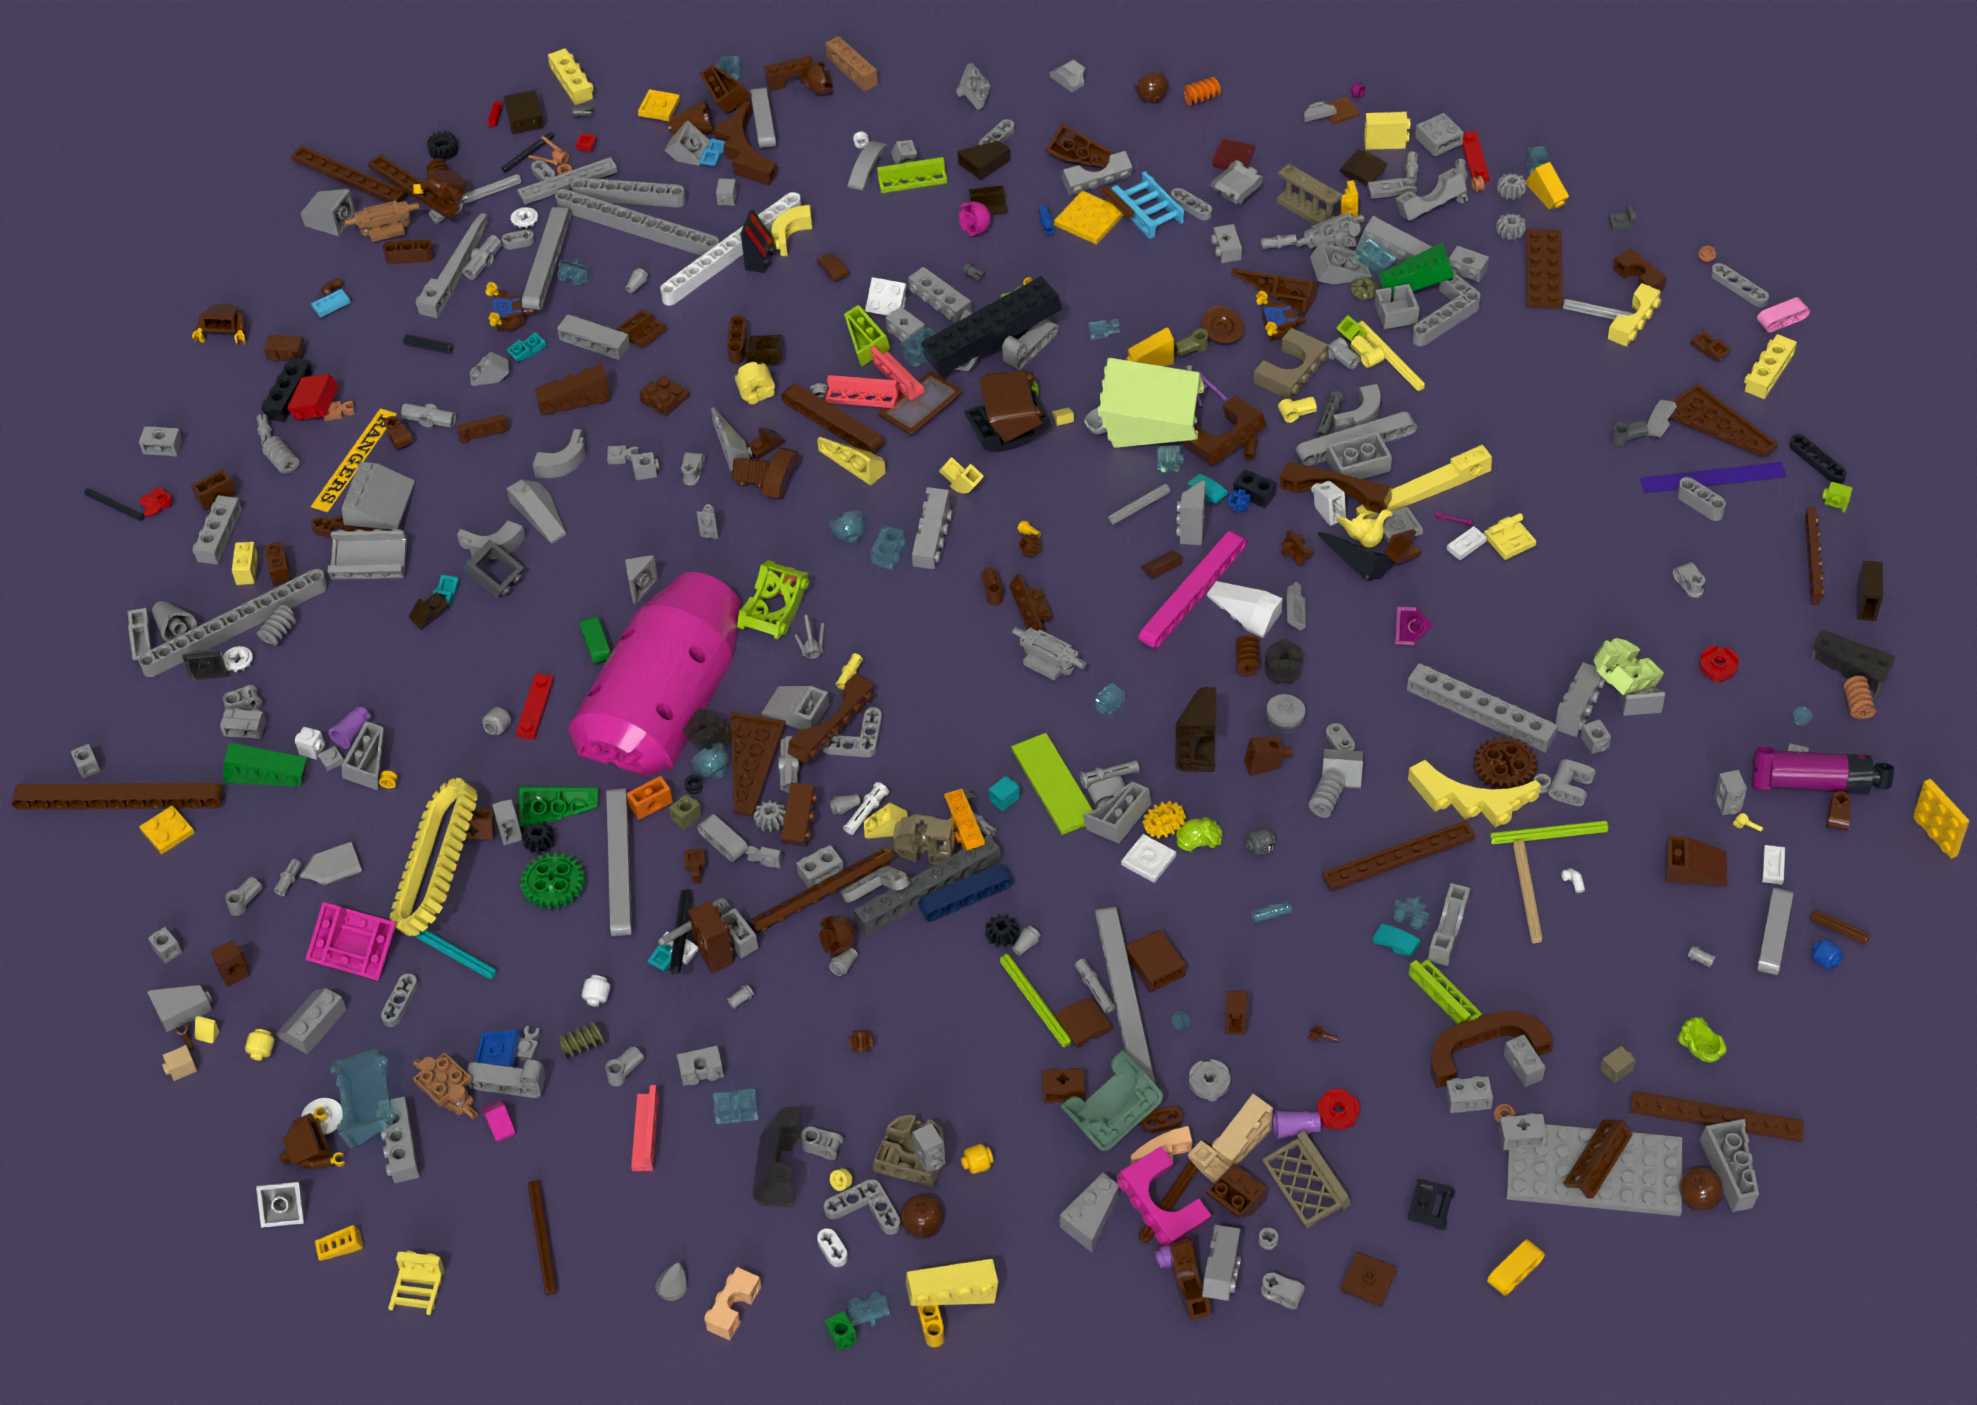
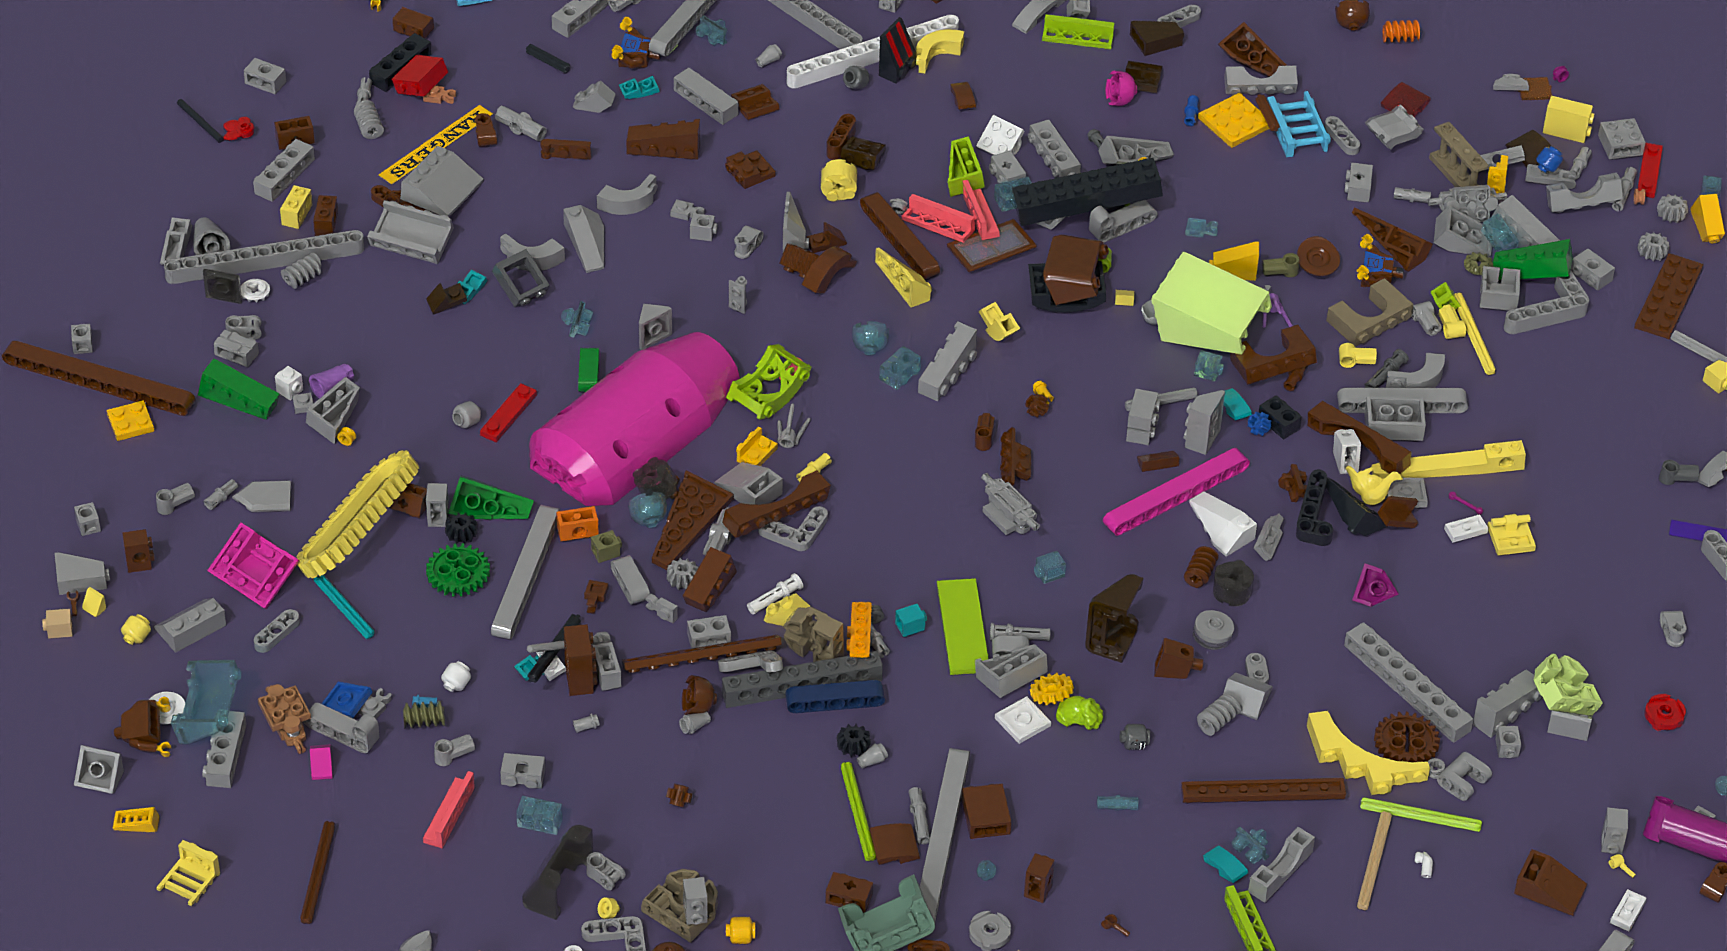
camera: 15 degrees right, 5 degrees down
(561, 593) = (575, 317): none -> clear light blue hips
(569, 1026) = (426, 700): none -> dark azure pin
(693, 789) = (621, 521): black bush -> none
(727, 278) = (856, 77): none -> dark grey head
(786, 669) = (755, 448): none -> yellow bracket
(842, 804) = (756, 584): light grey cone -> none
(1011, 274) = (1123, 150): none -> light grey wedge
(1133, 527) = (1143, 417): none -> light grey piece
(1327, 581) = (1313, 506): none -> black beam
(1355, 174) = (1514, 155): none -> light grey piece
(1388, 172) = (1549, 159): none -> blue head

